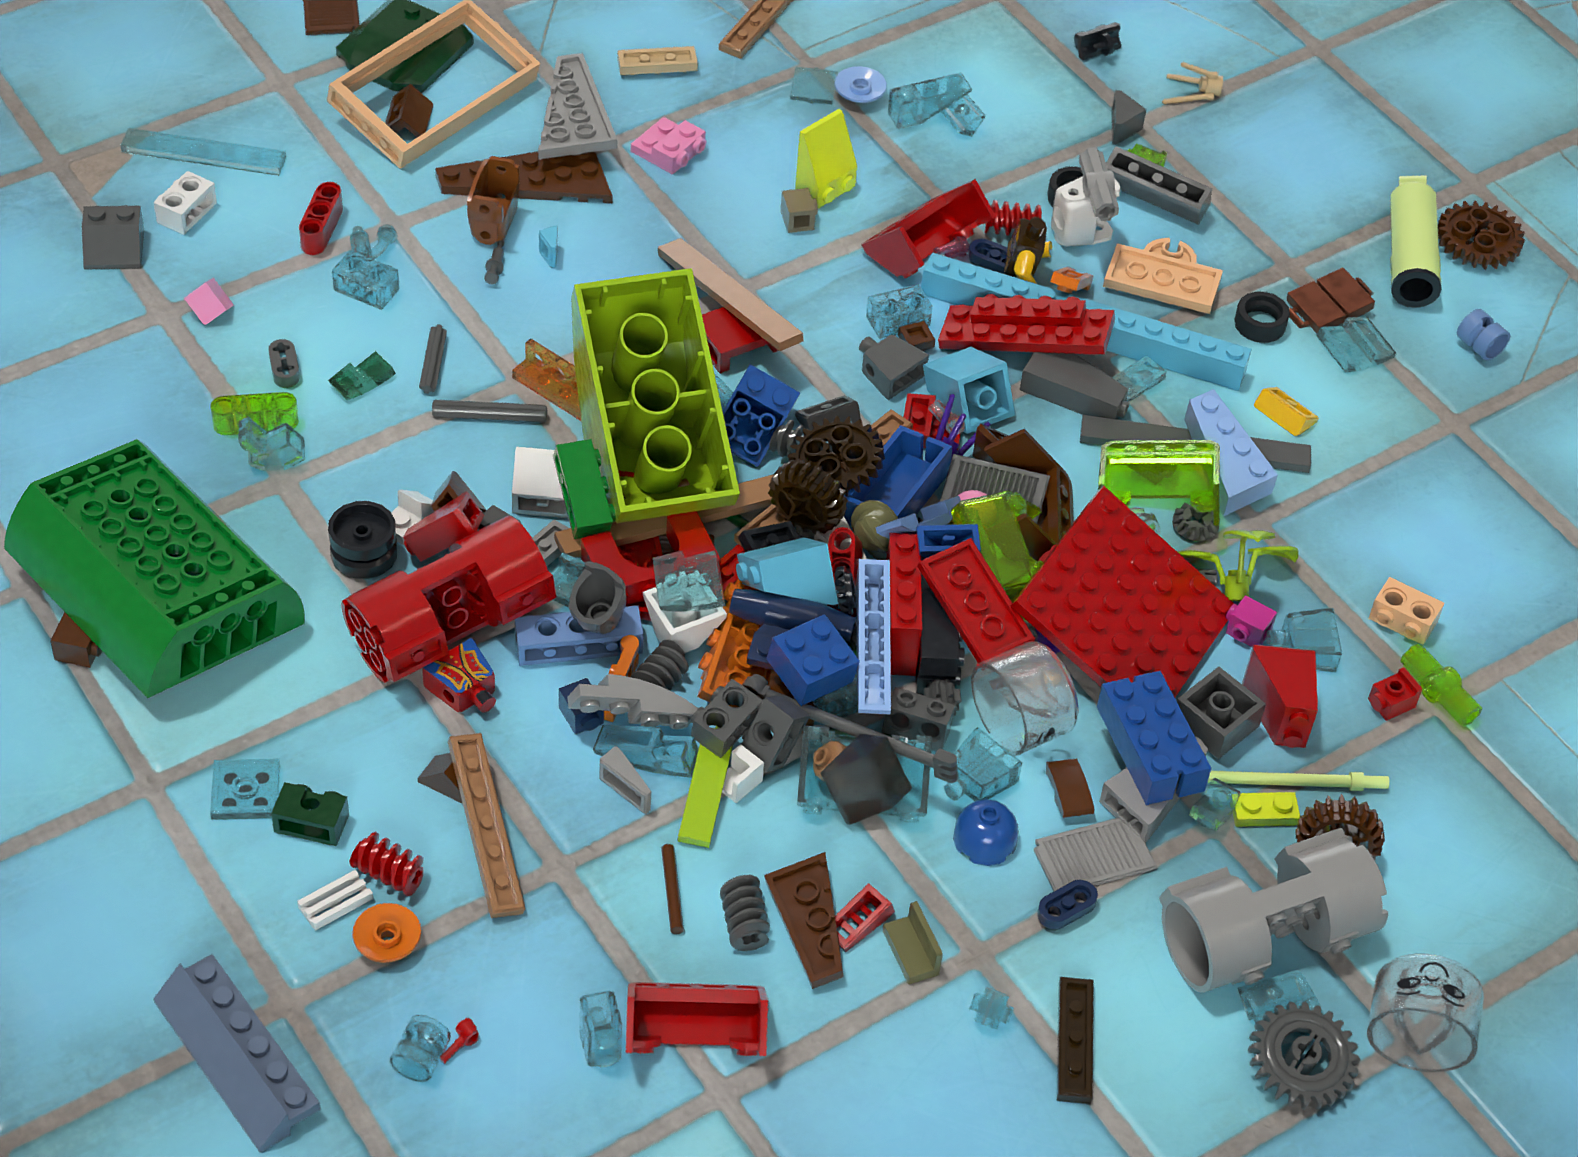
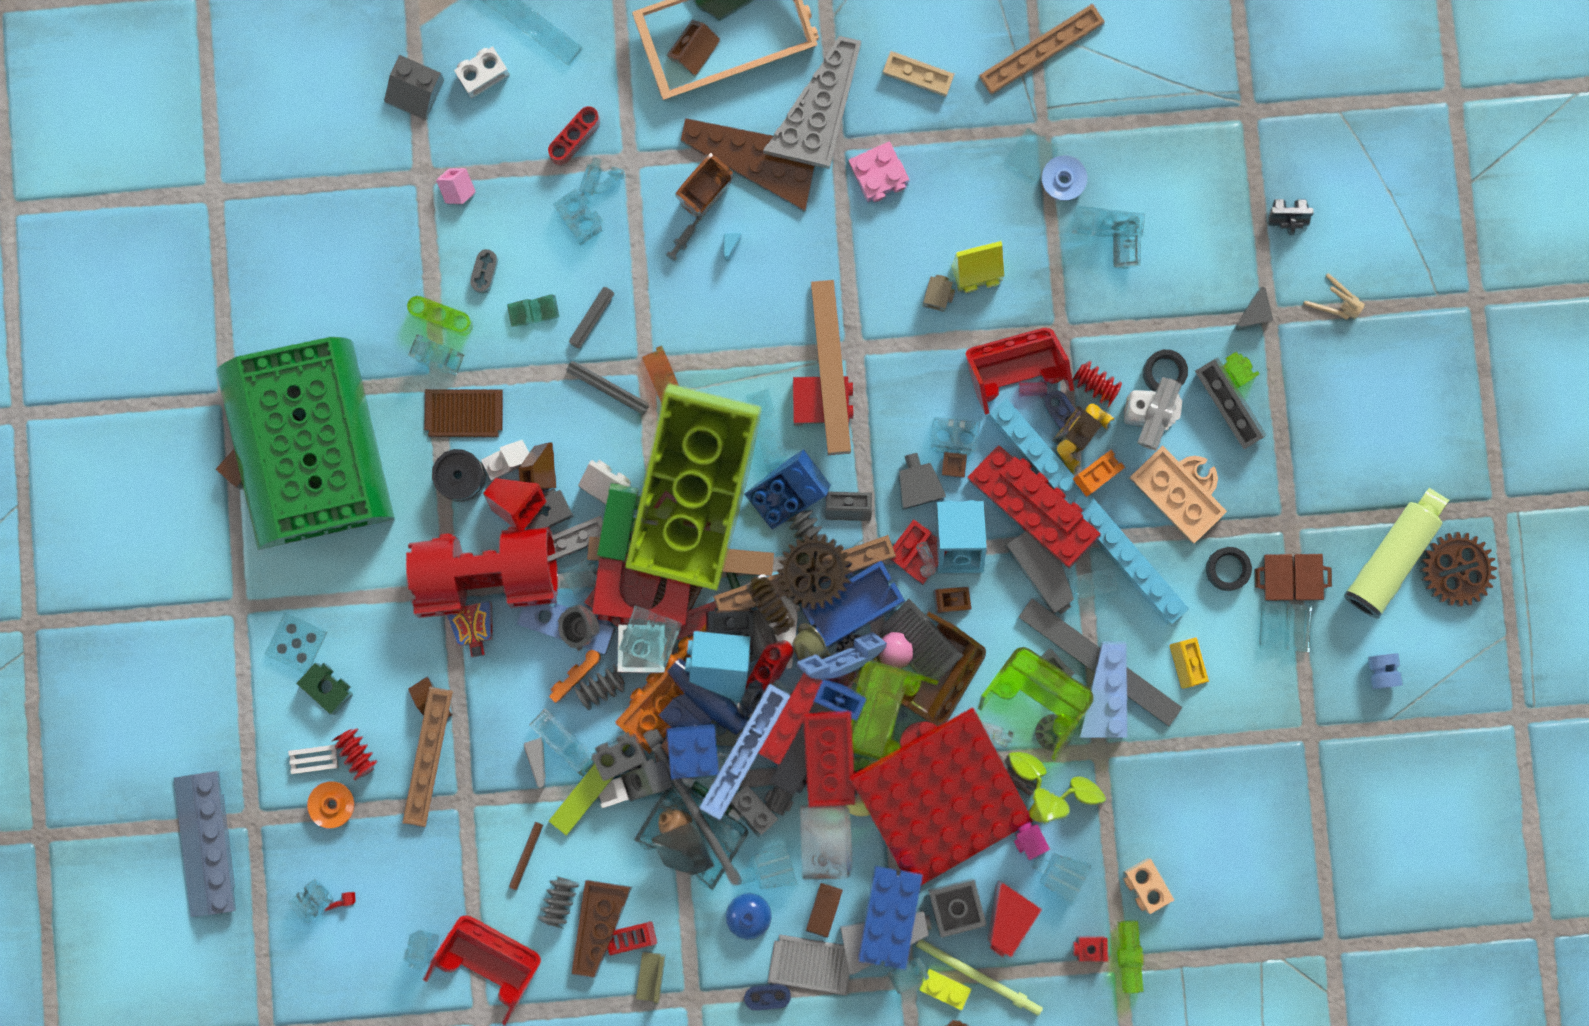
camera: 30 degrees right, 35 degrees up
(316, 498) = (463, 412): none -> reddish brown window
(576, 718) = (538, 688): dark blue brick -> none
(642, 700) = (572, 713): light grey slope -> none
(950, 440) = (912, 586): dark purple plant -> none

